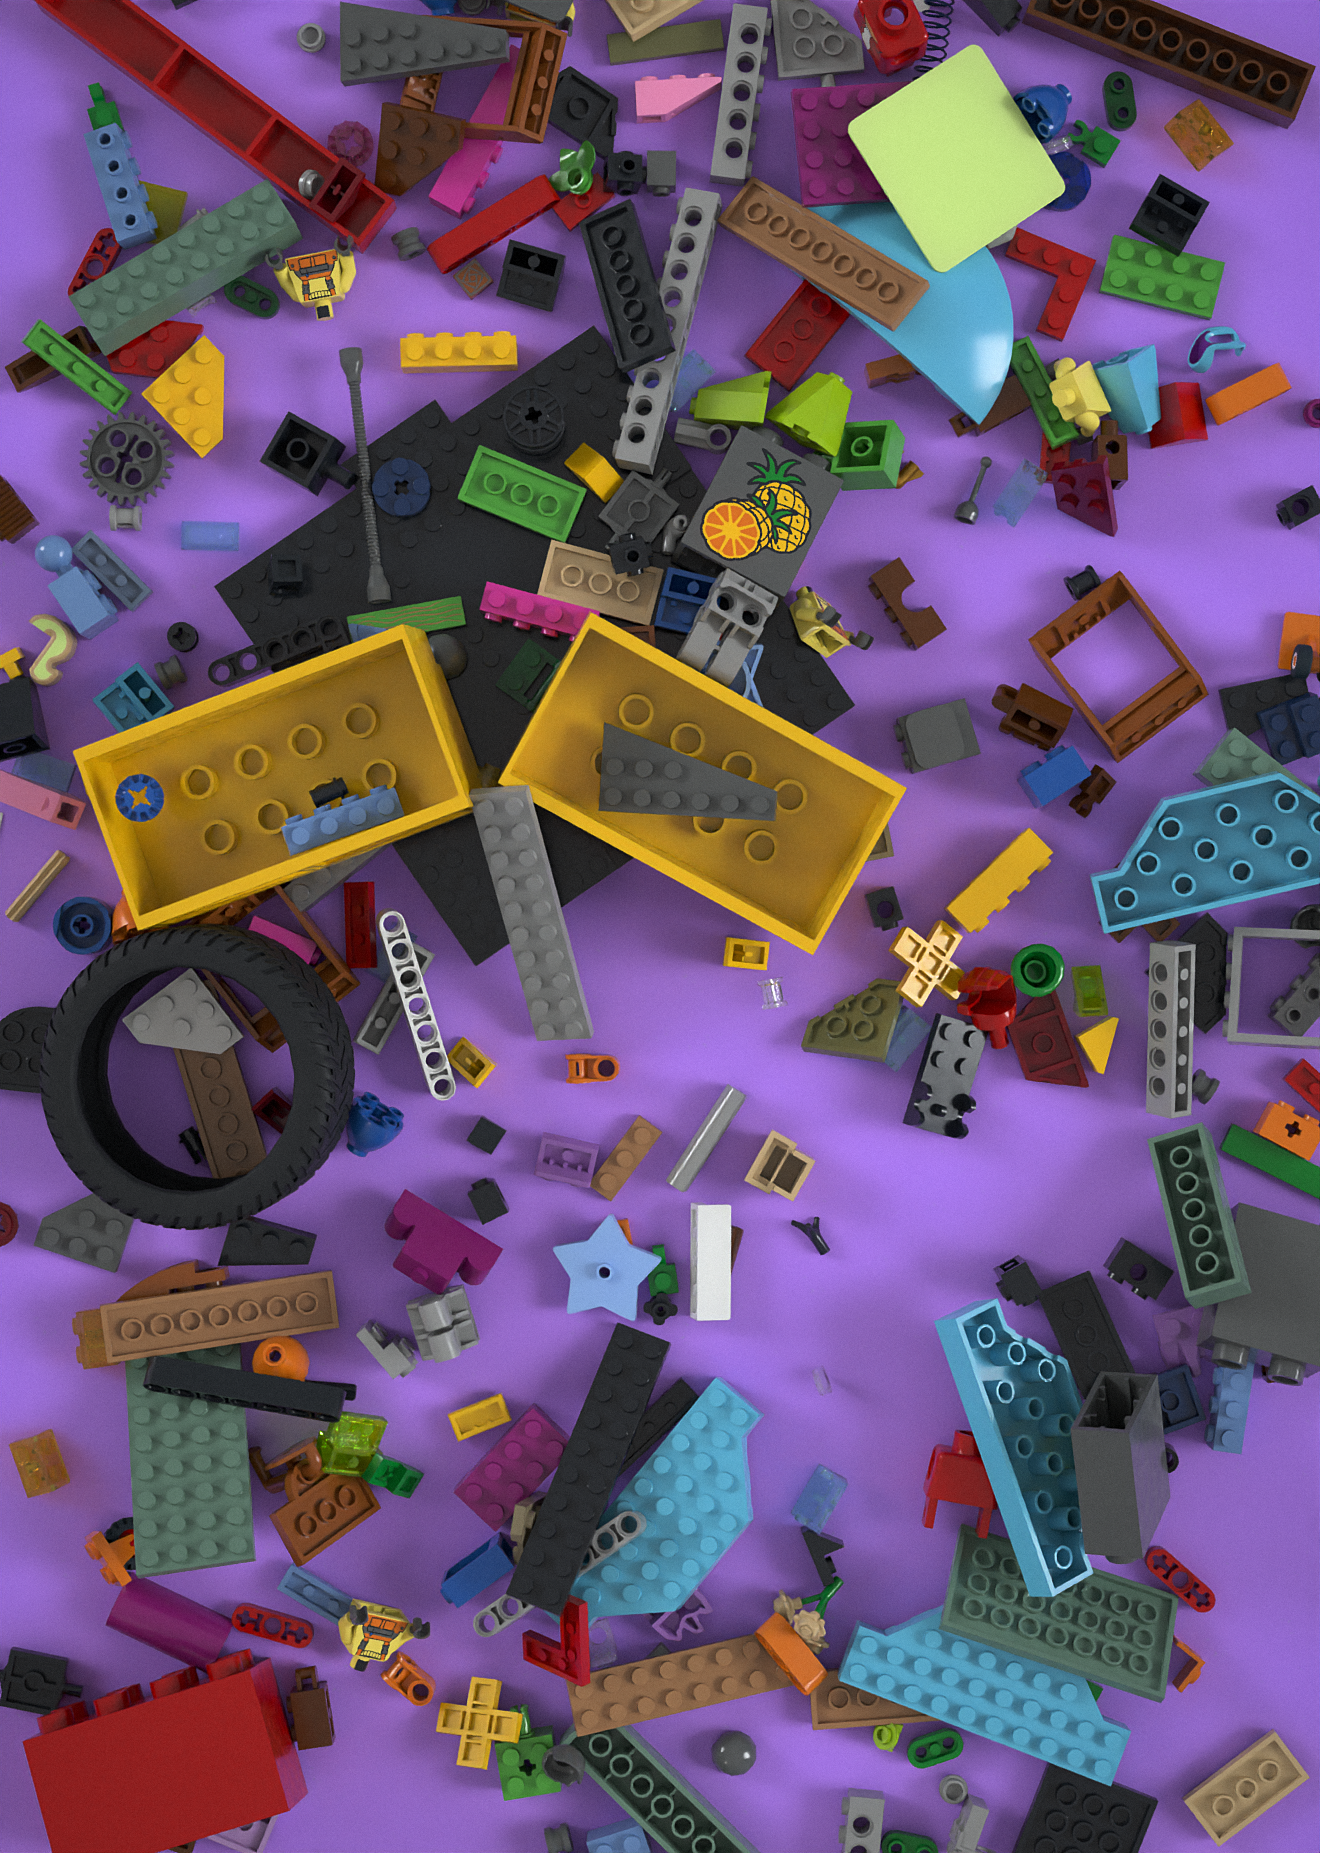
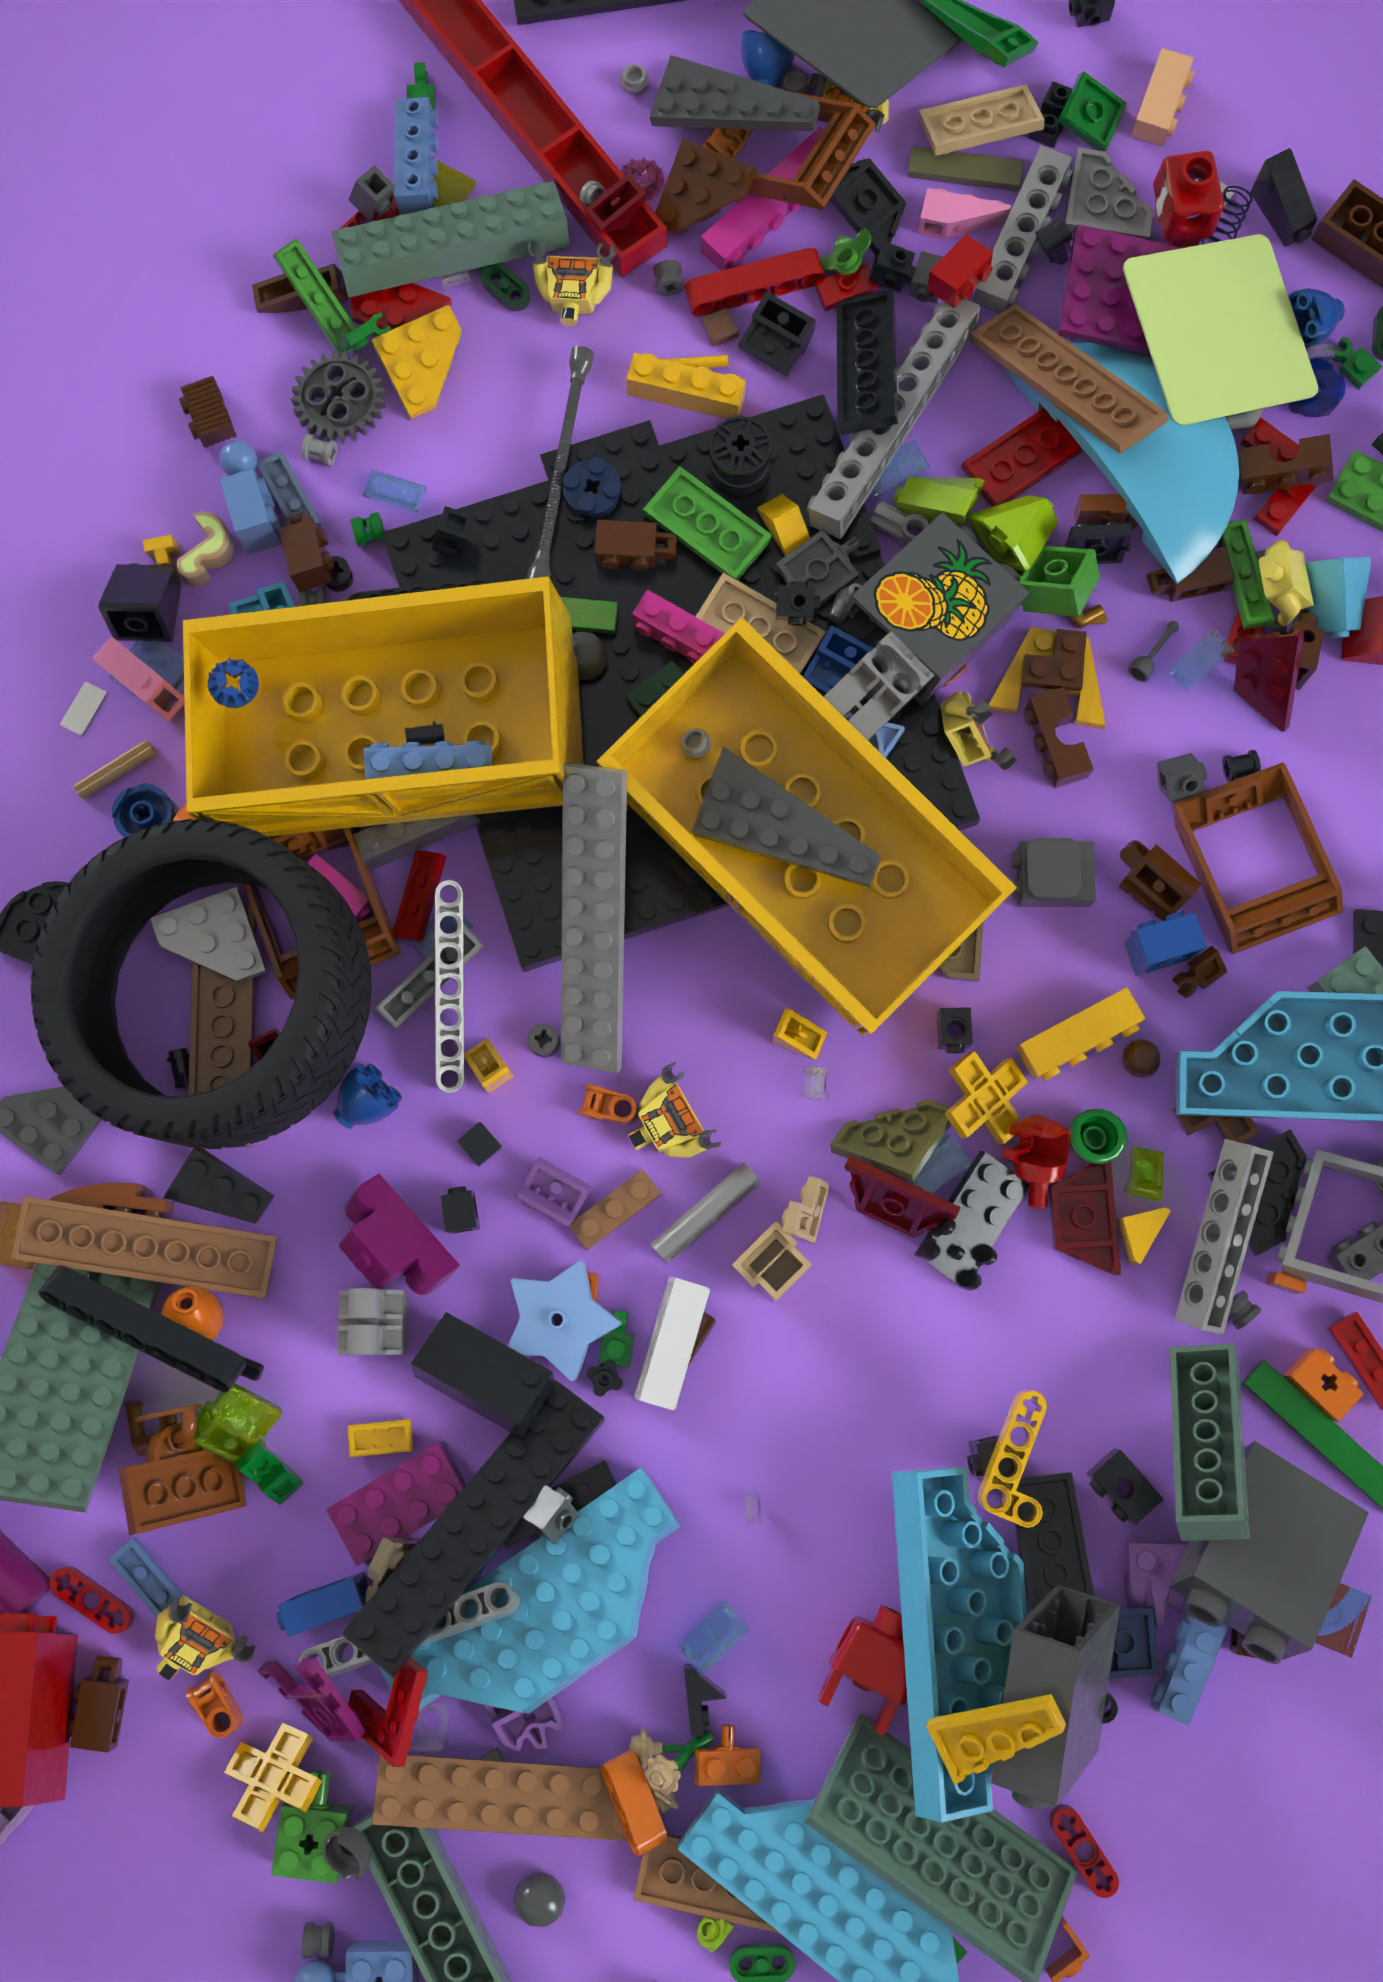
camera: 25 degrees right, 10 degrees down
(95, 244) = (372, 193): none -> dark grey brick
(128, 396) = (358, 337): none -> green plate
(149, 628) = (306, 552): none -> reddish brown brick
(204, 581) = (375, 529): none -> green wheel
(306, 455) = (509, 436): black brick -> none
(394, 1355) = (310, 1342): light grey plate -> none
(456, 536) = (631, 544): none -> reddish brown brick
(461, 322) = (704, 361): none -> yellow piece
(498, 1650) = (319, 1699): none -> magenta wing
(517, 1022) = (547, 1044): none -> dark grey wheel
(554, 1338) = (483, 1374): none -> black brick
(577, 723) = (695, 743): none -> light grey plate
(650, 1440) = (551, 1513): none -> dark grey brick
(651, 1066) = (670, 1120): none -> torso
(691, 167) = (960, 271): none -> red brick
(773, 104) = (1055, 241): none -> black piece
(796, 1122) = (804, 1218): none -> tan plate
(814, 1234) = (788, 1345): black bar -> none
(860, 1597) = (727, 1762): none -> orange plate
(872, 1081) = (895, 1200): none -> dark red wing
(885, 531) = (1041, 642): none -> yellow wing
(893, 540) = (1062, 669): none -> reddish brown plate
(897, 405) = (1108, 540): none -> black plate
(1029, 611) = (1181, 776): none -> dark grey brick
(1037, 1274) = (1019, 1455): none -> yellow beam
(1058, 886) = (1141, 1058): none -> reddish brown piece
(1070, 1518) = (984, 1735): none -> yellow wing
(1076, 271) = (1263, 473): none -> reddish brown arch
(1236, 1051) = (1286, 1282): none -> orange tile

